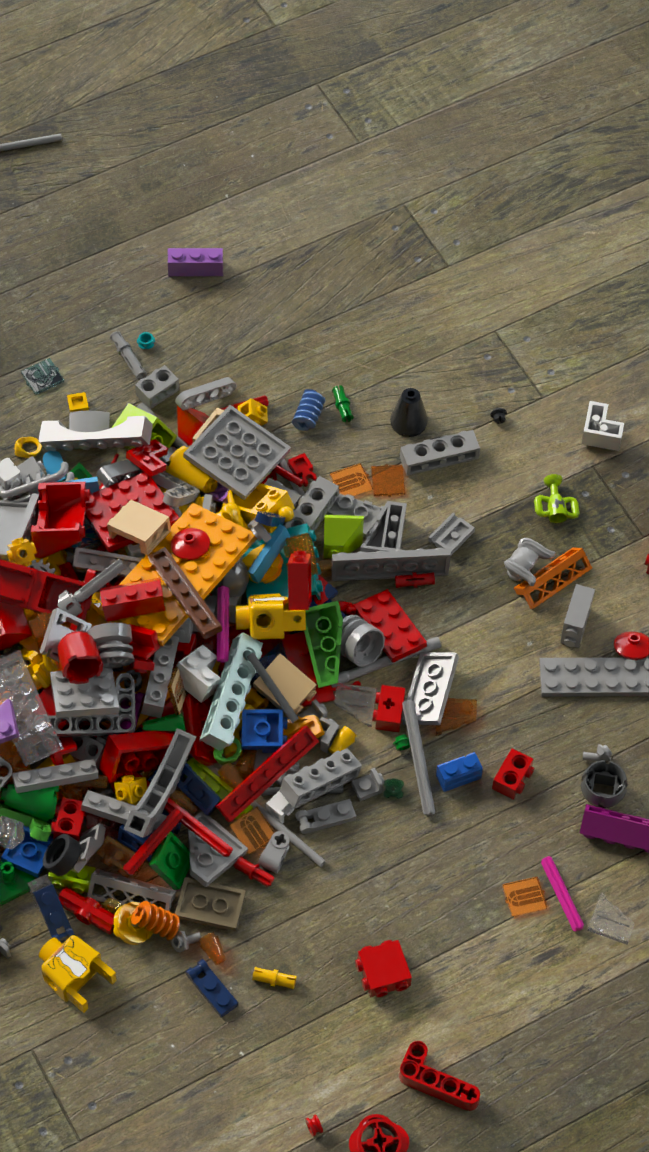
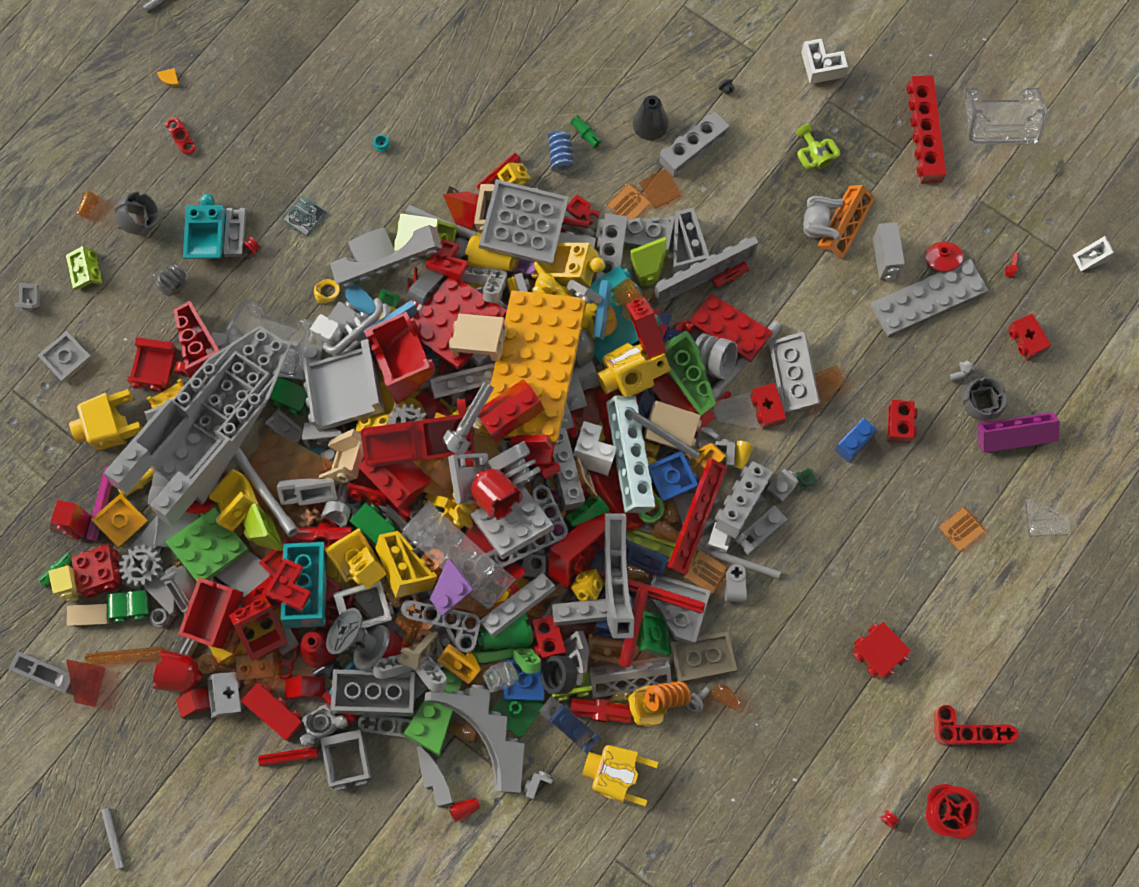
camera: 20 degrees left, 15 degrees up
(15, 548) = (385, 408): yellow brick -> none
(77, 402) = (350, 229): yellow plate -> none
(125, 351) = (367, 160): light grey pin -> none
(157, 387) = (418, 185): light grey brick -> none
(185, 593) = (554, 385): reddish brown tile -> none
(190, 544) = (537, 339): red dish -> none
(195, 261) = (388, 47): medium lavender brick -> none
(205, 393) = (463, 174): light grey beam -> none
(212, 988) = (742, 733): dark blue plate -> none
(223, 618) = (594, 395): dark pink axle -> none
(254, 871) = (726, 610): red axle -> none
(269, 519) = (591, 279): dark blue beam -> none
(274, 978) = (790, 699): yellow pin -> none
(401, 742) = (793, 433): green plate -> none
(418, 758) = (815, 442): light grey axle -> none
(451, 533) = (741, 217): light grey plate -> none
(562, 894) = (993, 513): dark pink axle -> none

